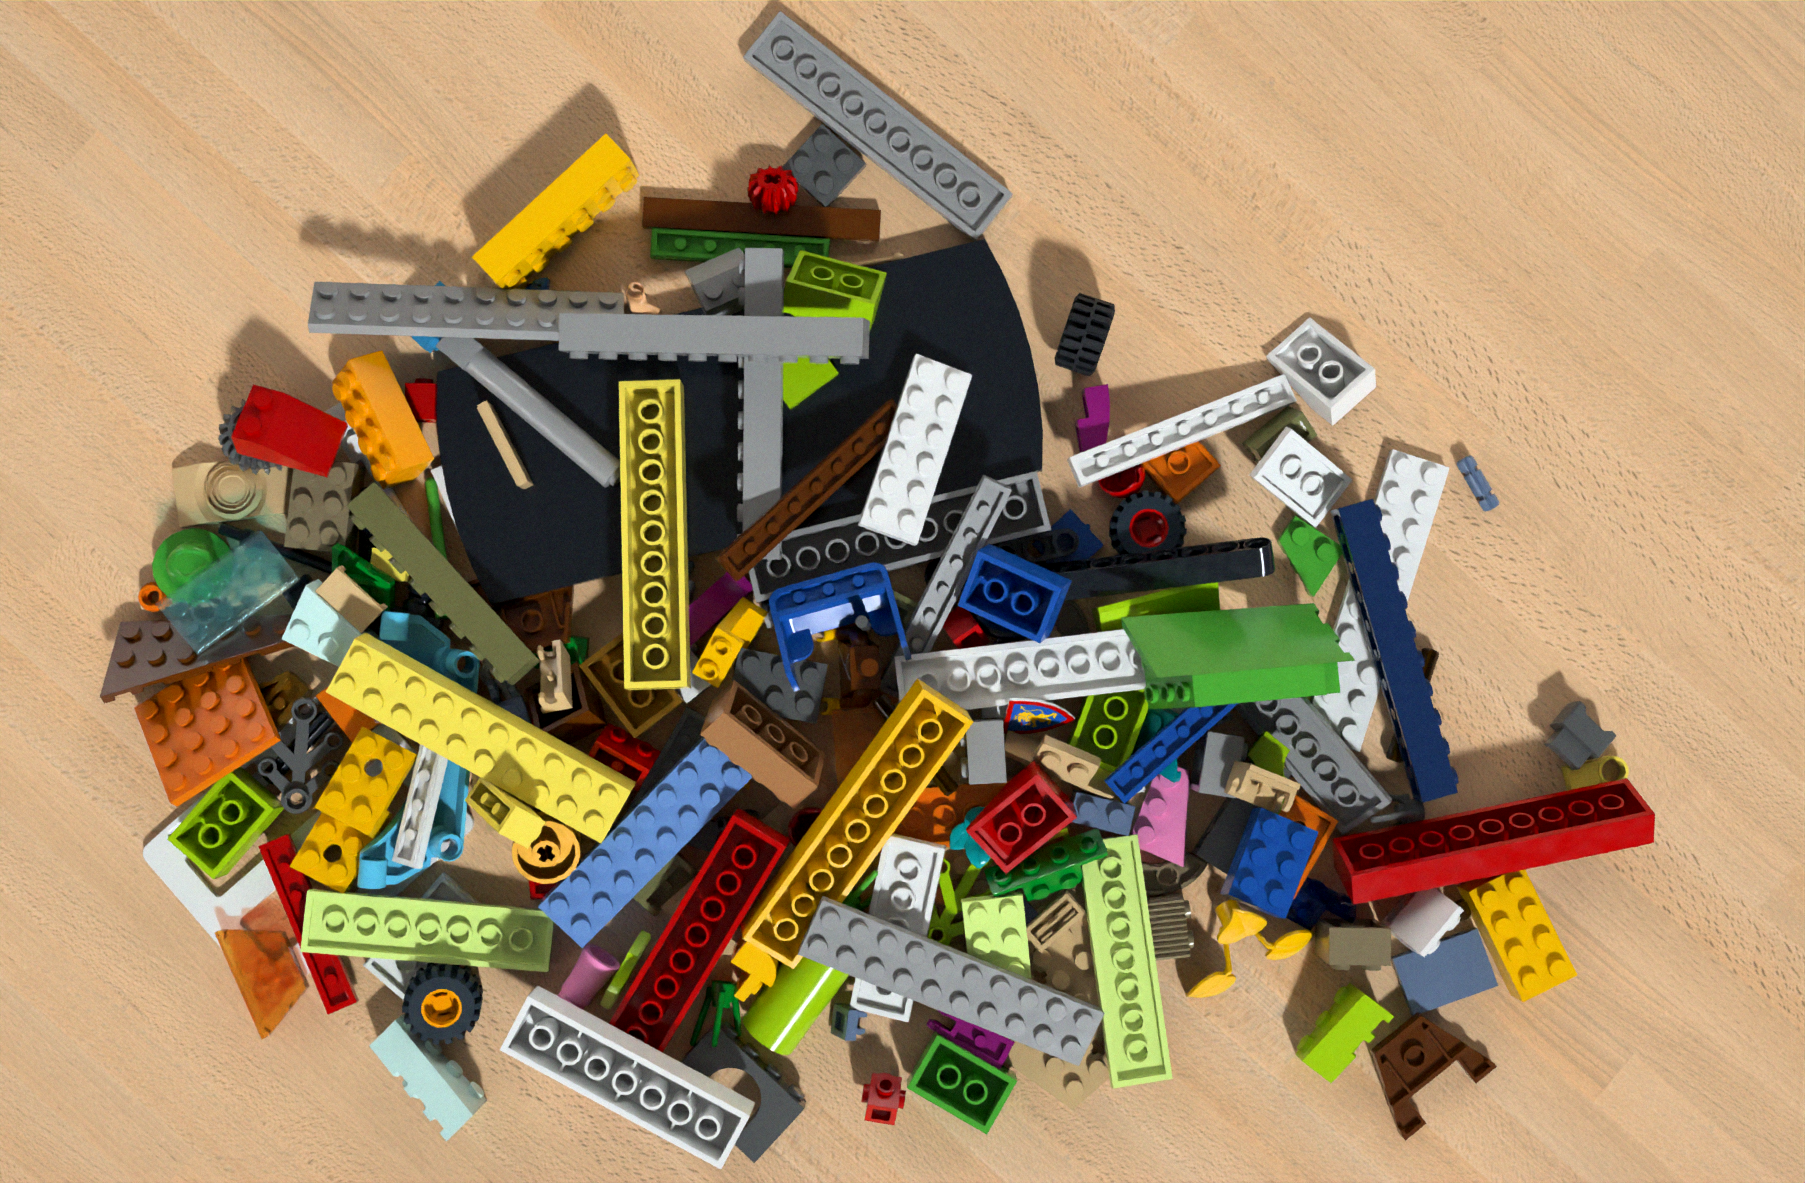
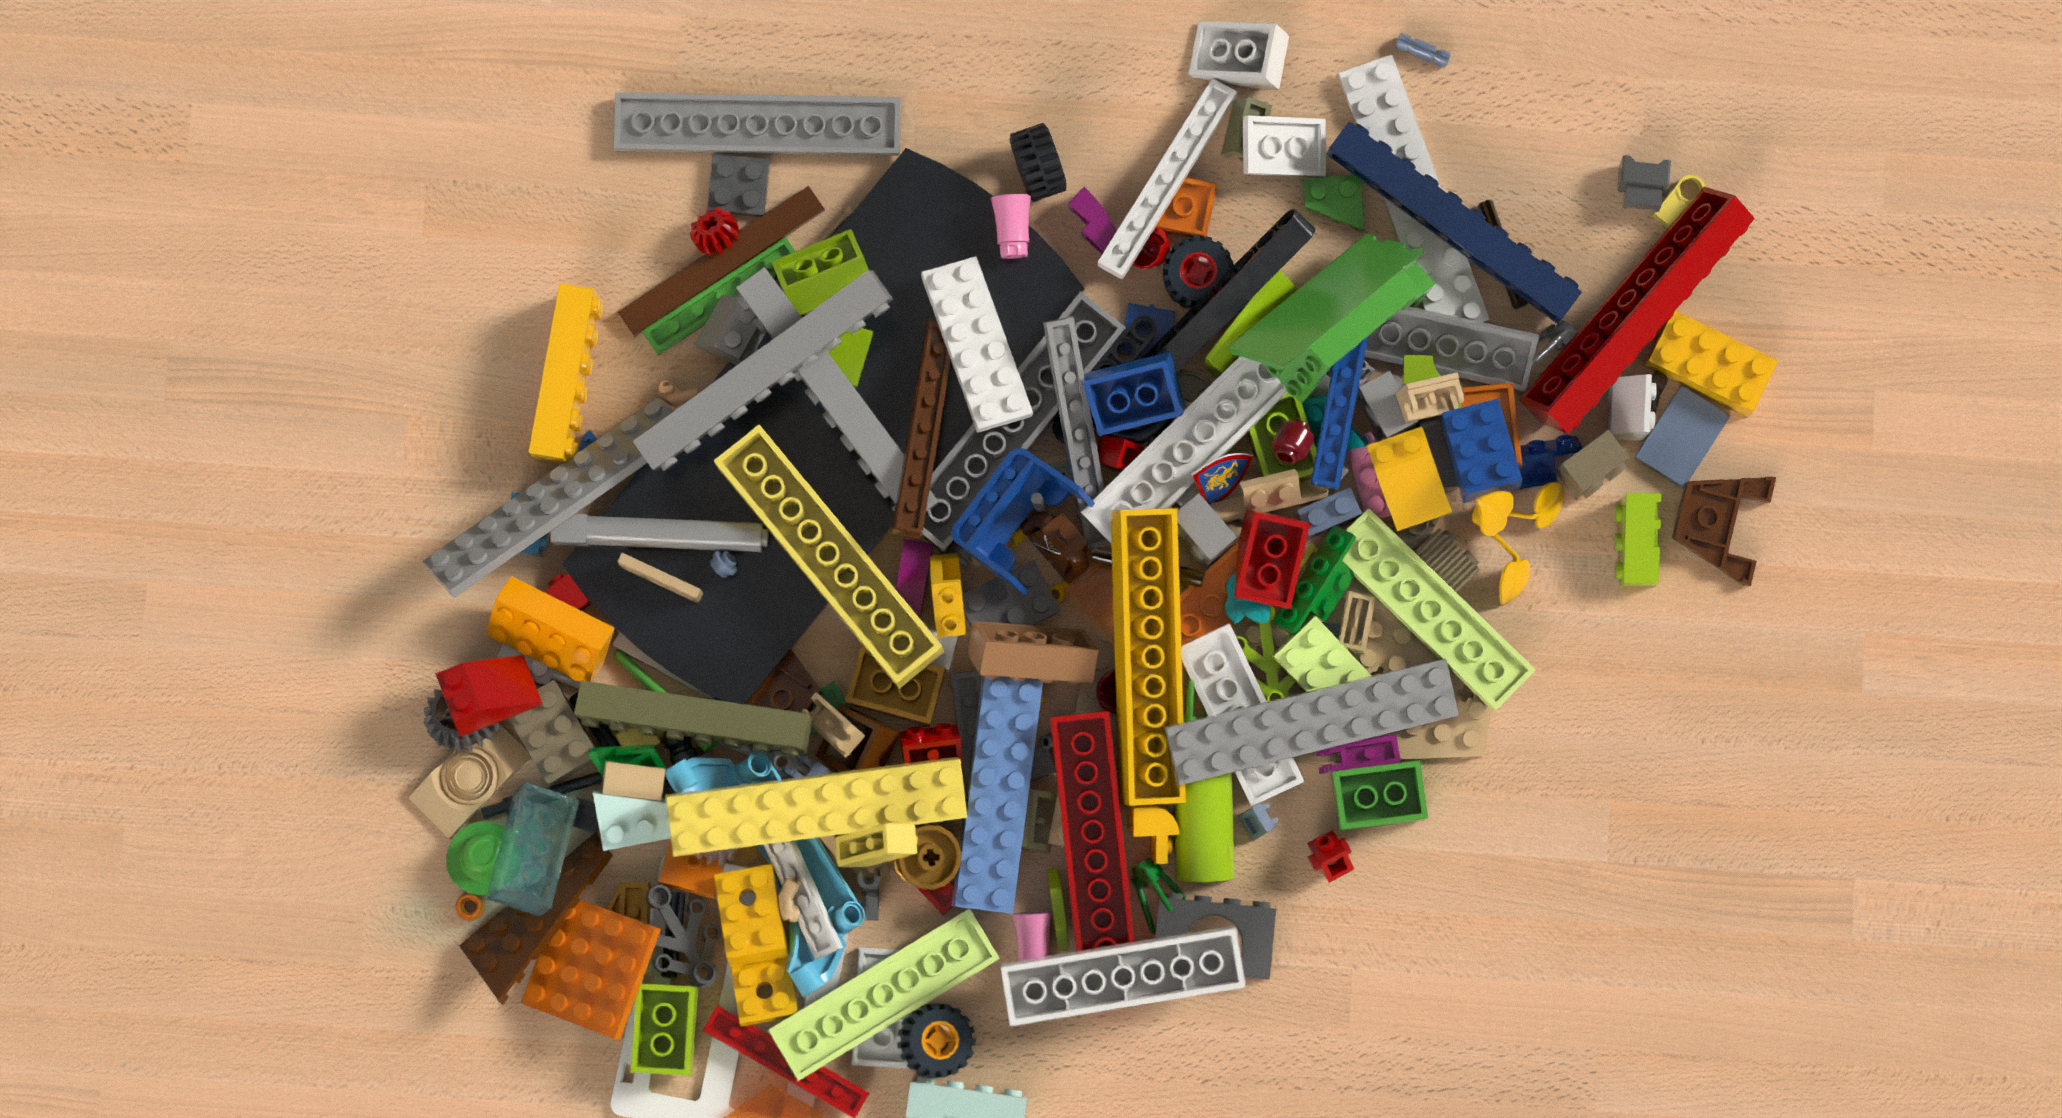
camera: 35 degrees left, 5 degrees down
(402, 794) = (785, 900): none -> tan arm
(479, 841) = (870, 898): none -> dark grey plate
(566, 473) = (724, 563): none -> sand blue plate
(1022, 370) = (1012, 224): none -> bright pink plant
(1116, 734) = (1292, 441): none -> dark red head
(1190, 839) = (1409, 478): none -> yellow slope

